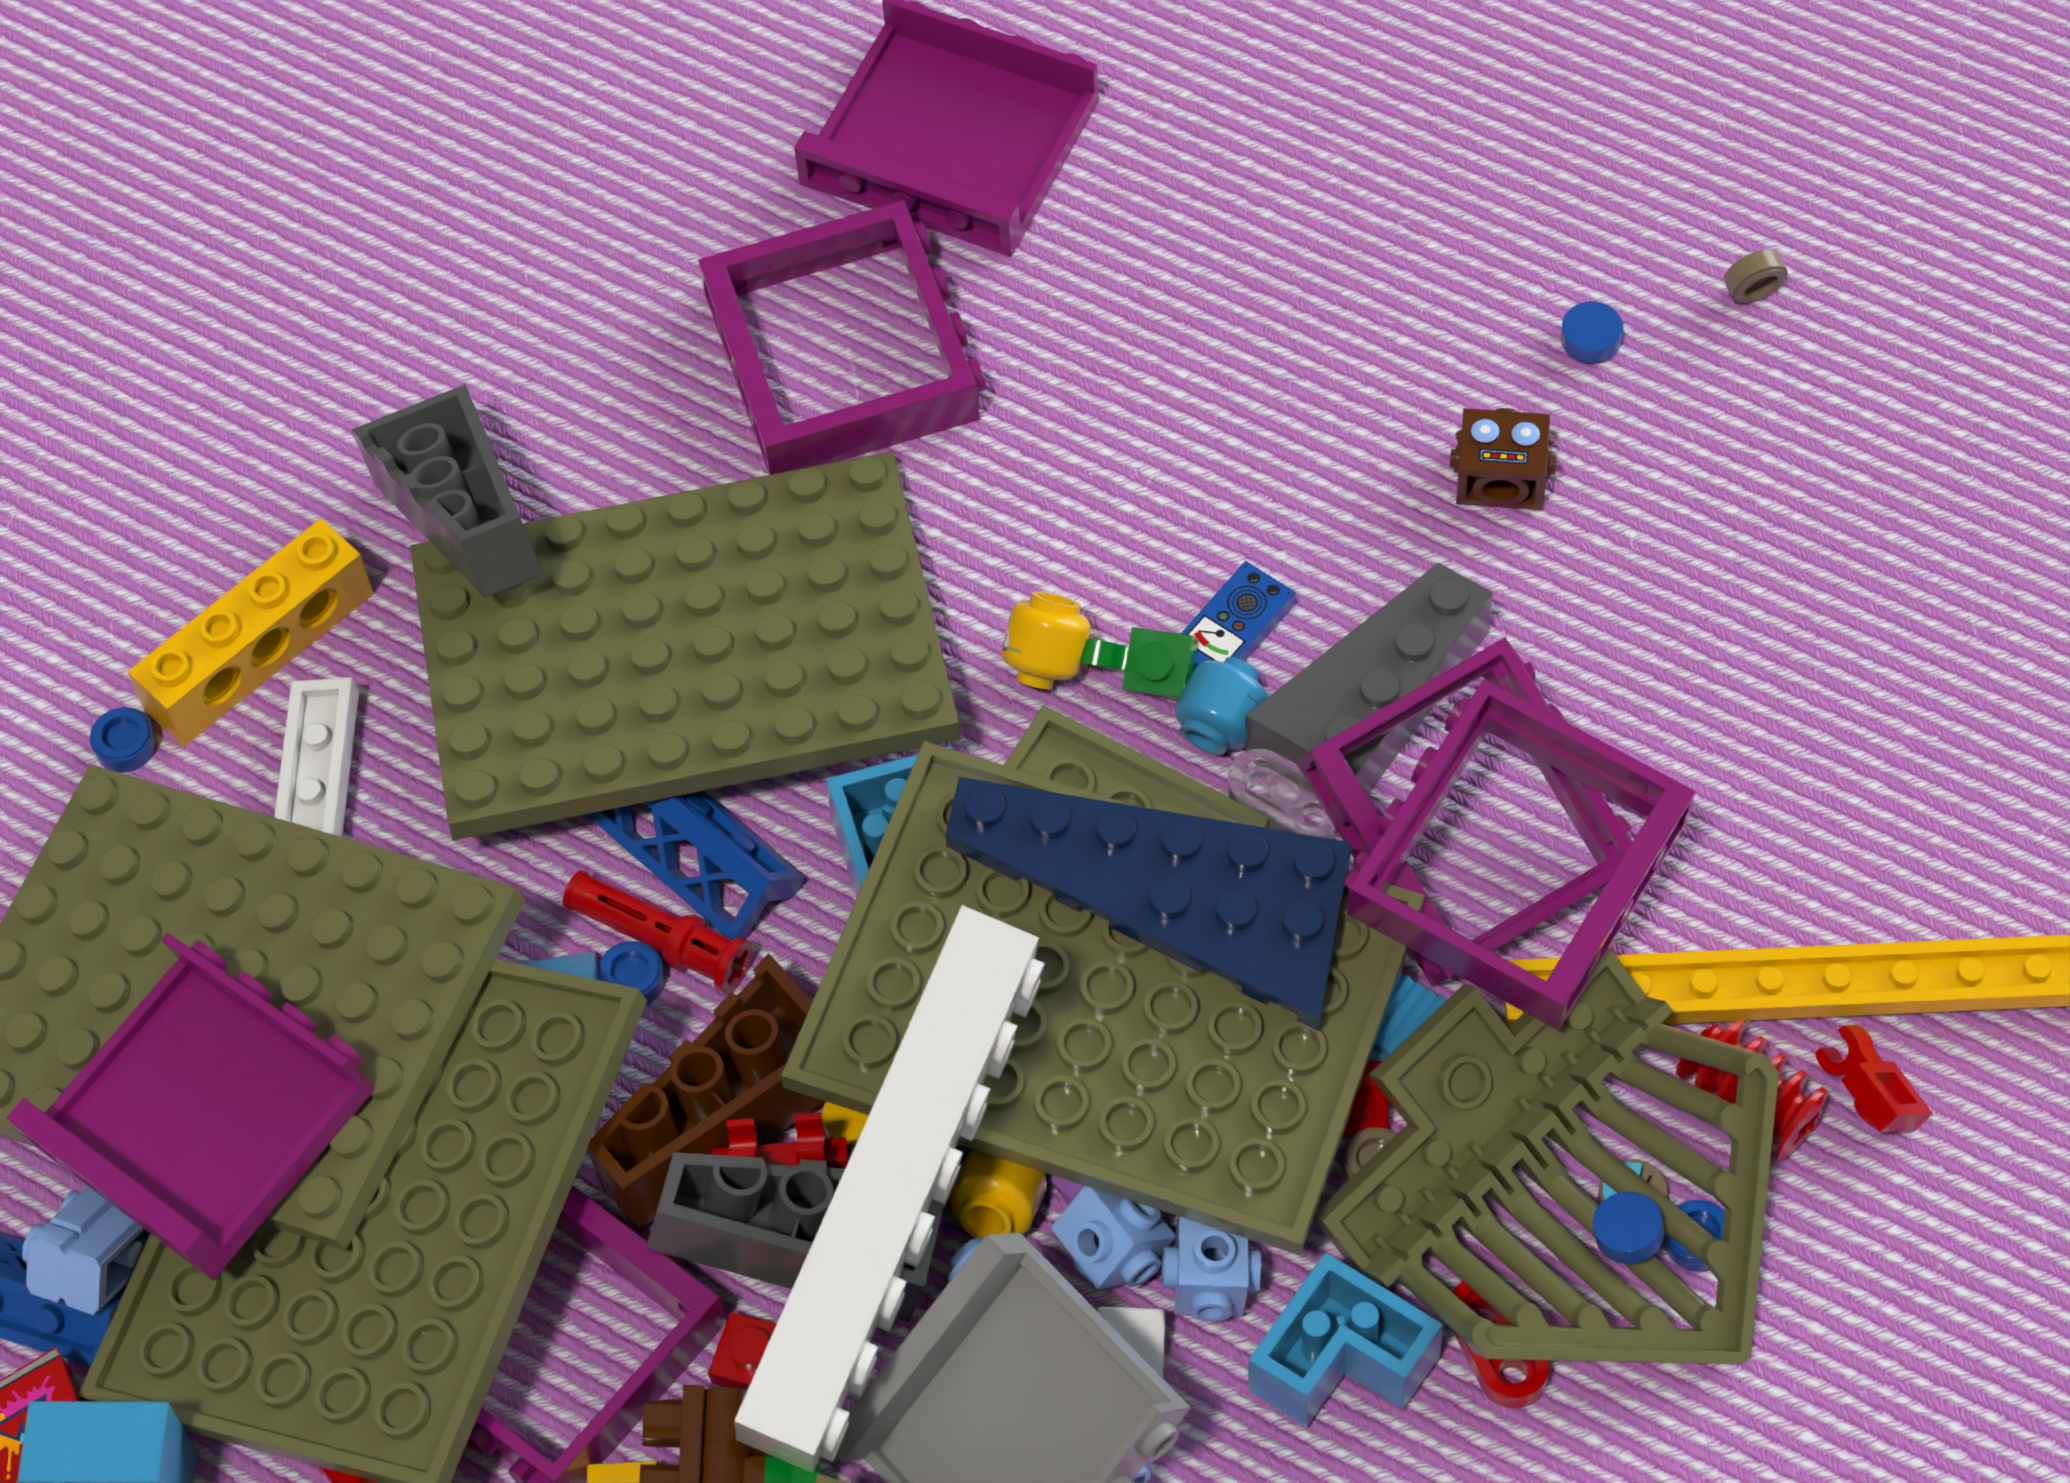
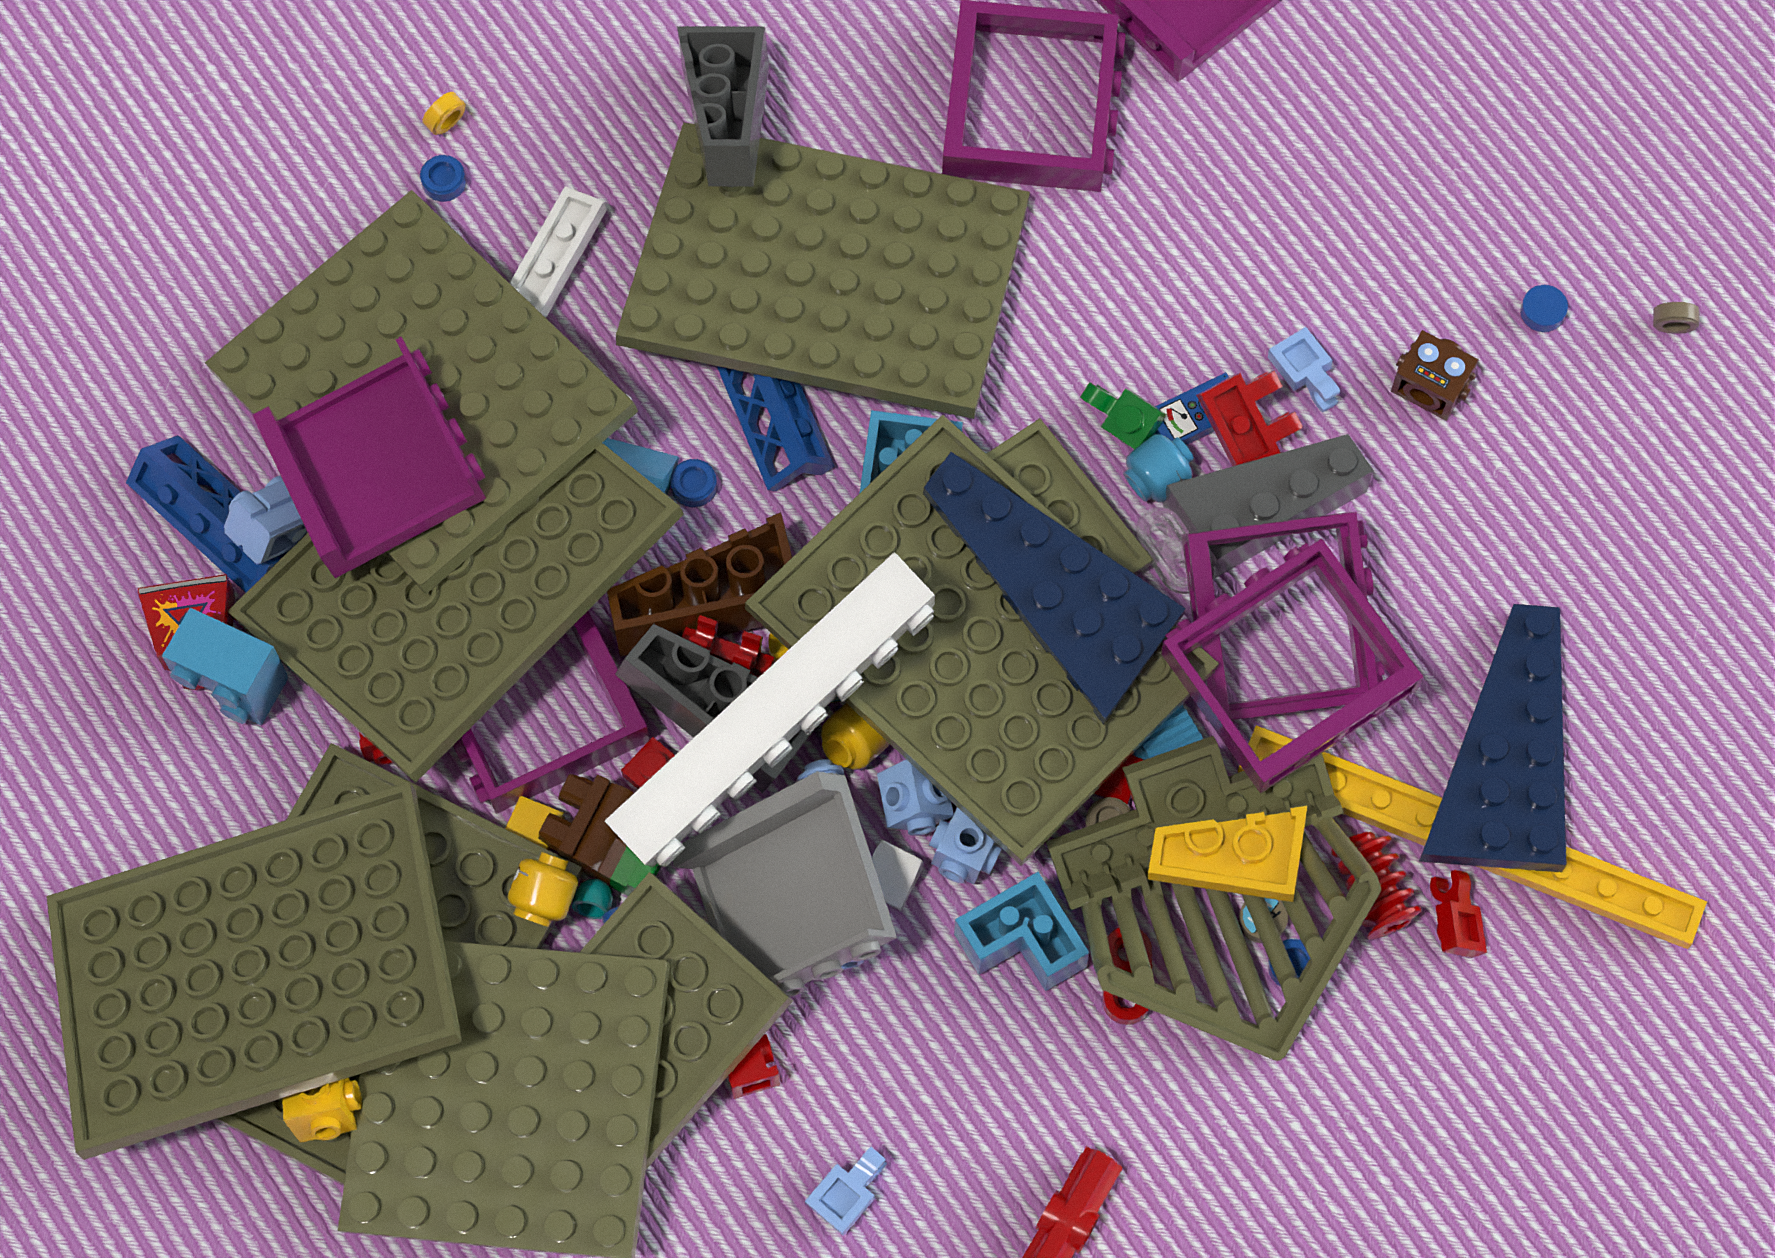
camera: 20 degrees right, 10 degrees up
(90, 658) = (444, 113): none -> yellow tile
(251, 632) = (554, 140): yellow brick -> none
(682, 940) = (738, 475): red pin -> none
(1045, 639) = (1064, 371): yellow head -> none
(1293, 607) = (1238, 421): none -> red plate
(1339, 509) = (1305, 362): none -> light blue plate
(1572, 1119) = (1233, 856): none -> yellow wing
(1628, 1227) = (1241, 942): blue tile -> none
(1842, 879) = (1509, 774): none -> dark blue wing

